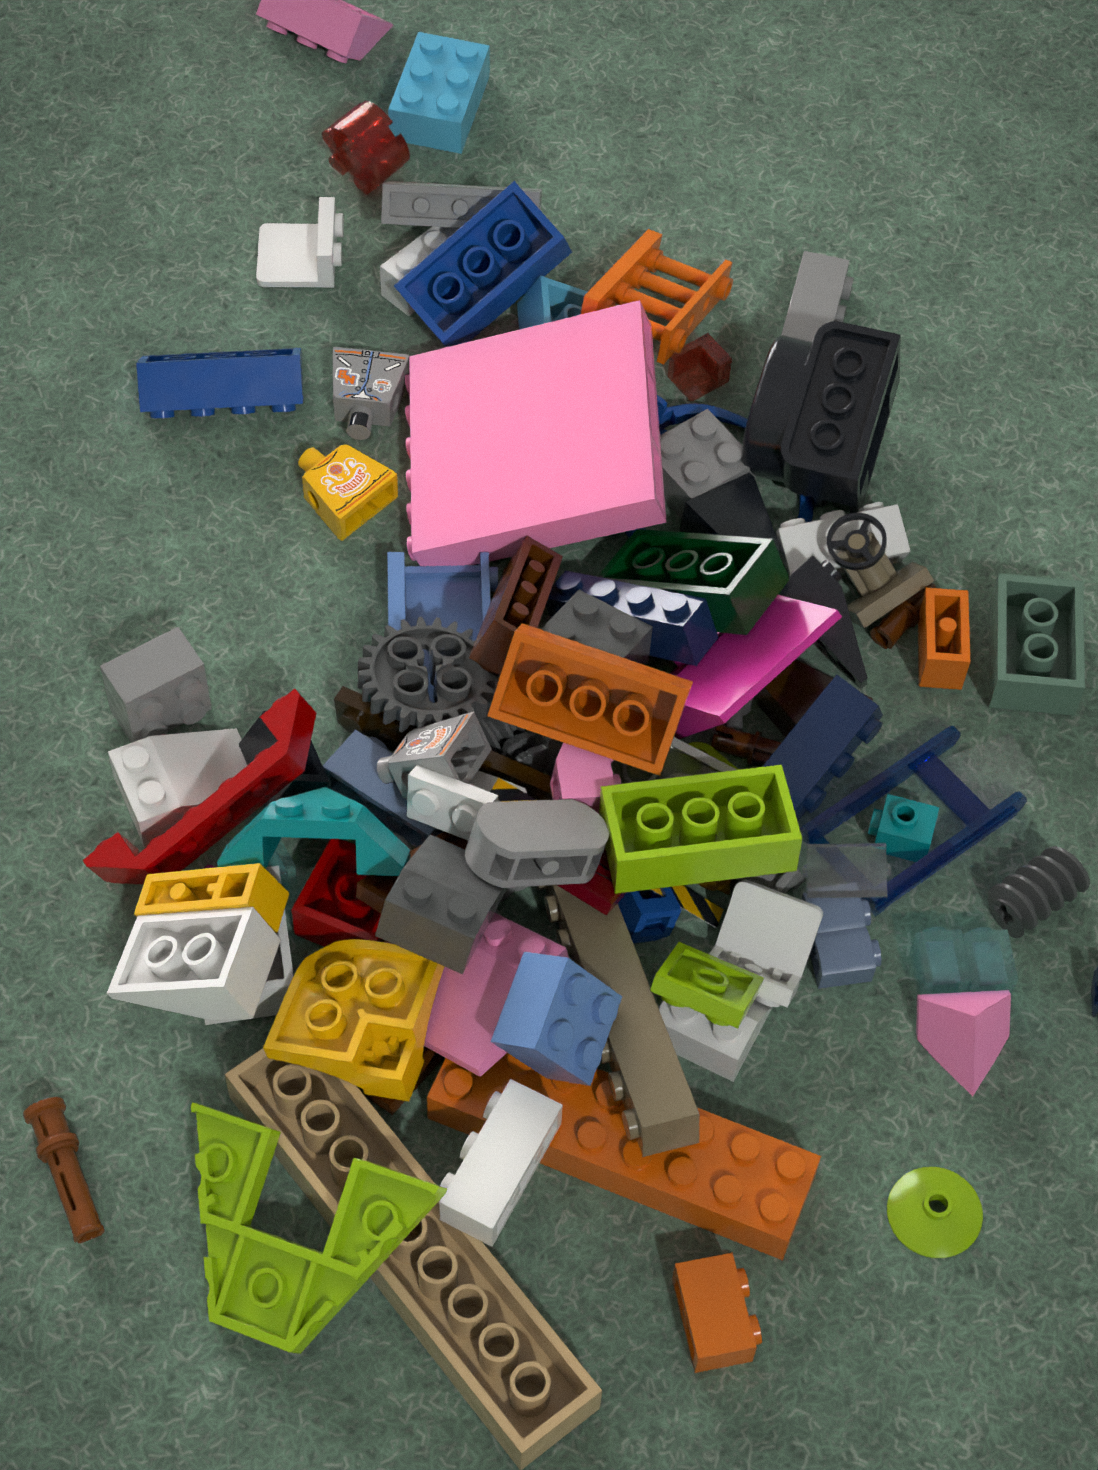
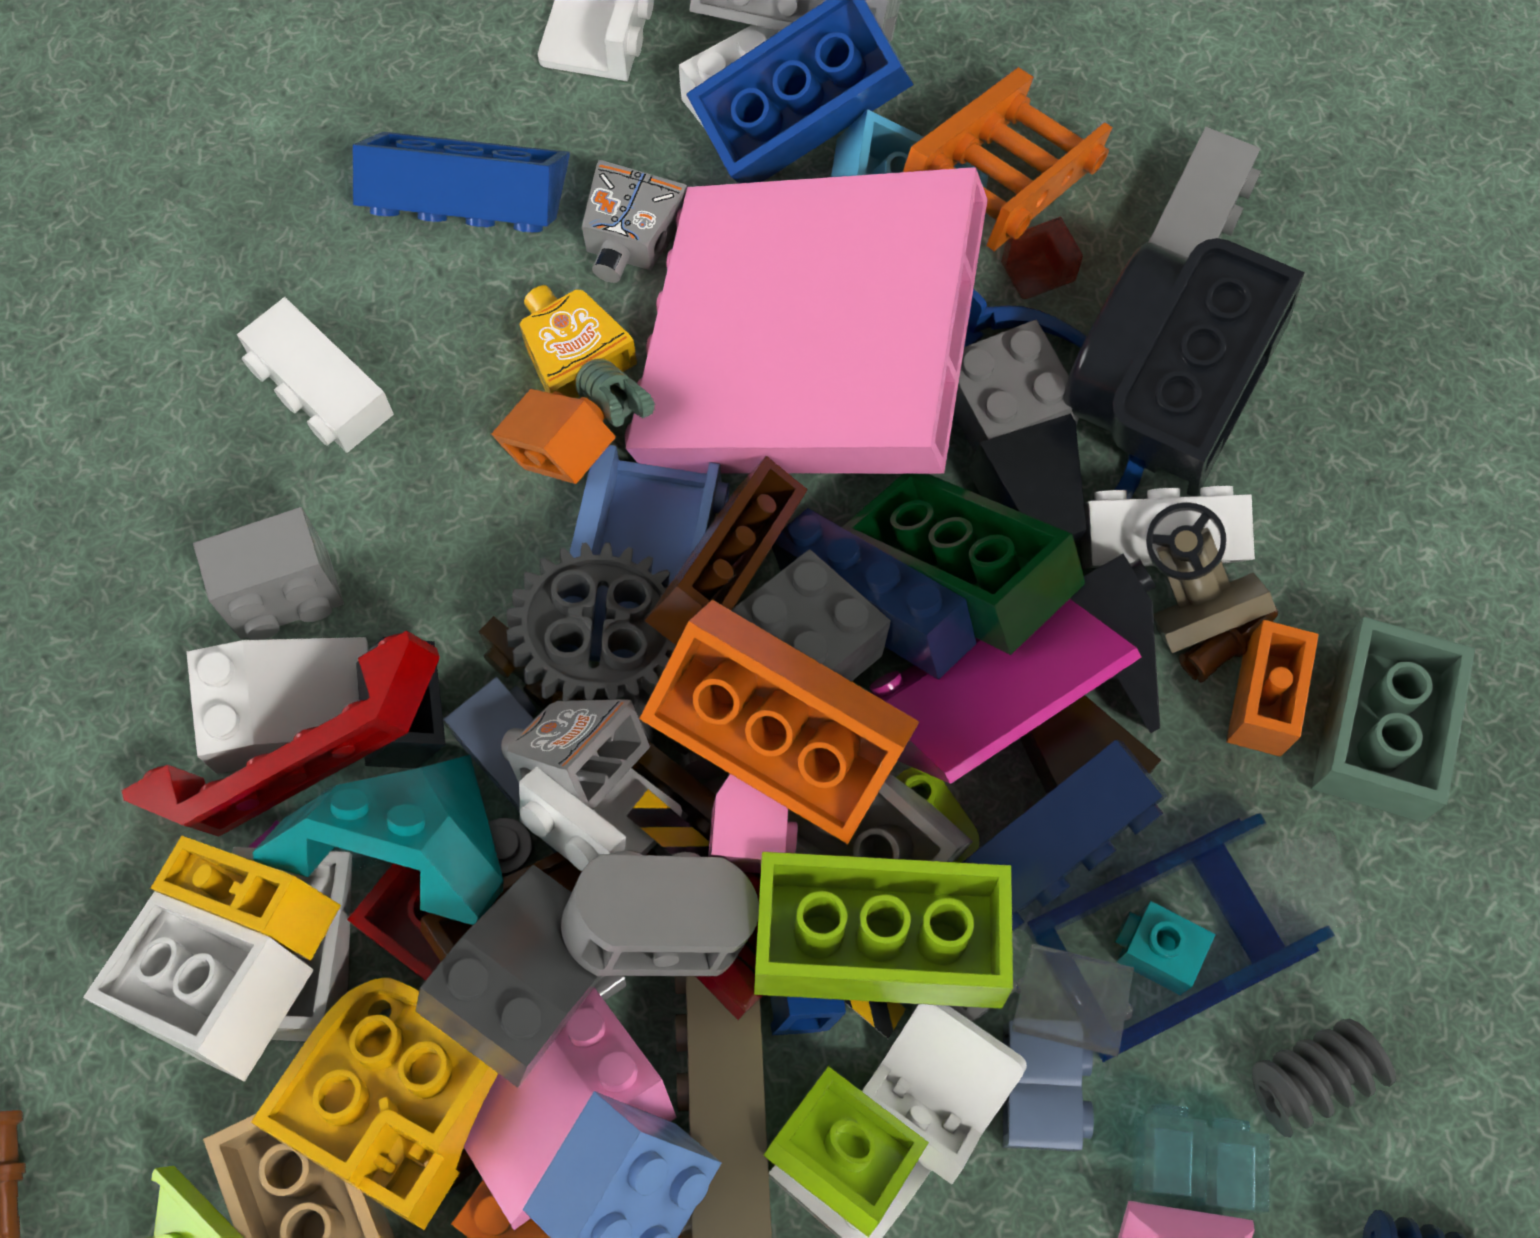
camera: 15 degrees right, 10 degrees up
(143, 544) = (314, 376): none -> white brick
(353, 552) = (554, 434): none -> orange brick
(392, 513) = (613, 391): none -> sand green hinge
(744, 744) = (996, 792): reddish brown axle -> none

